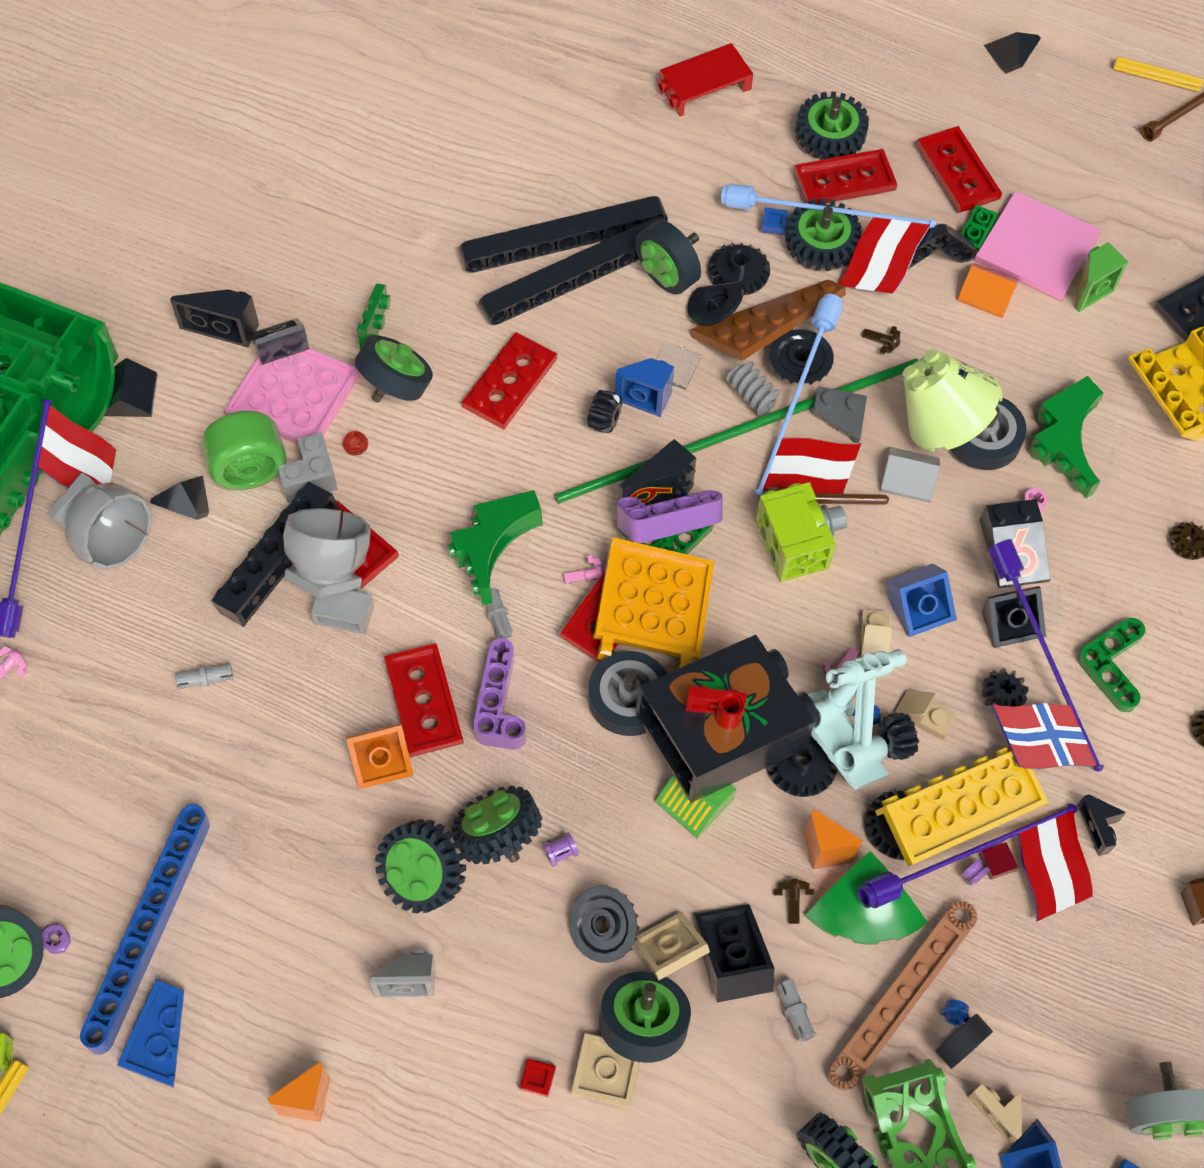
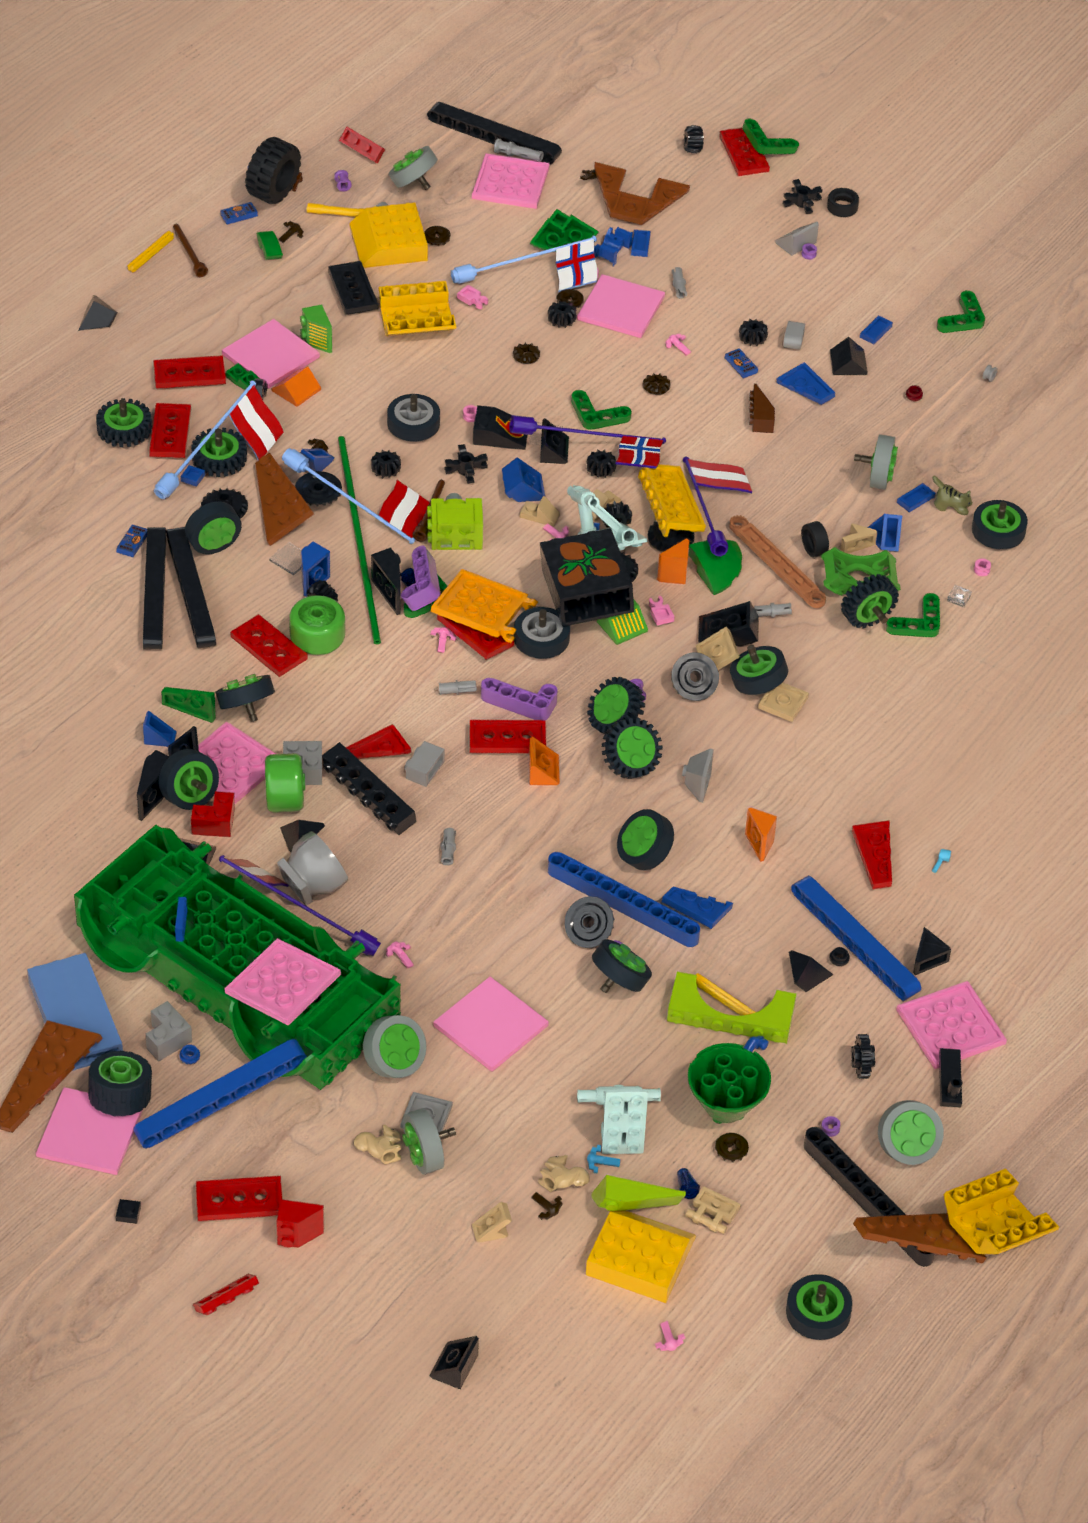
camera: 75 degrees left, 15 degrees down
(84, 889) = (578, 919): none -> black gear
(191, 402) = (214, 819): none -> red brick
(222, 346) = (188, 779): none -> wheel
(244, 928) = (645, 839): none -> wheel
(319, 558) = (390, 745): light grey plate -> none
(325, 299) = (157, 731): none -> blue slope
(355, 443) = (289, 734): clear red plate -> none
(493, 529) = (403, 678): green arch -> none
(537, 1077) = (777, 735): red tile -> none
(546, 418) = (317, 625): none -> bright green wheel
(633, 190) = (132, 541): none -> tile
(703, 76) = (45, 479): red panel -> none
(714, 302) = (256, 519): black hat -> none
(715, 702) = (590, 559): red plate -> none
(732, 847) = (661, 613): none -> bright pink plate
(753, 388) = (332, 517): light grey piece -> none
(794, 886) = (694, 592): dark brown piece -> none
(841, 410) = (367, 482): dark grey wing -> none
(857, 341) = (318, 458): none -> blue slope
(885, 423) = (385, 464): none -> black gear
(910, 474) = (427, 464): slope -> none
(923, 525) = (466, 463): none -> black pin
(948, 401) = (397, 420): yellowish green cone -> none
(955, 1012) = (795, 542): blue plate -> none
(975, 872) = (713, 509): medium lavender bush -> none
(999, 860) = (710, 500): dark red tile -> none
(1062, 438) = (418, 379): green arch -> none
(1097, 818) = (699, 449): black slope -> none

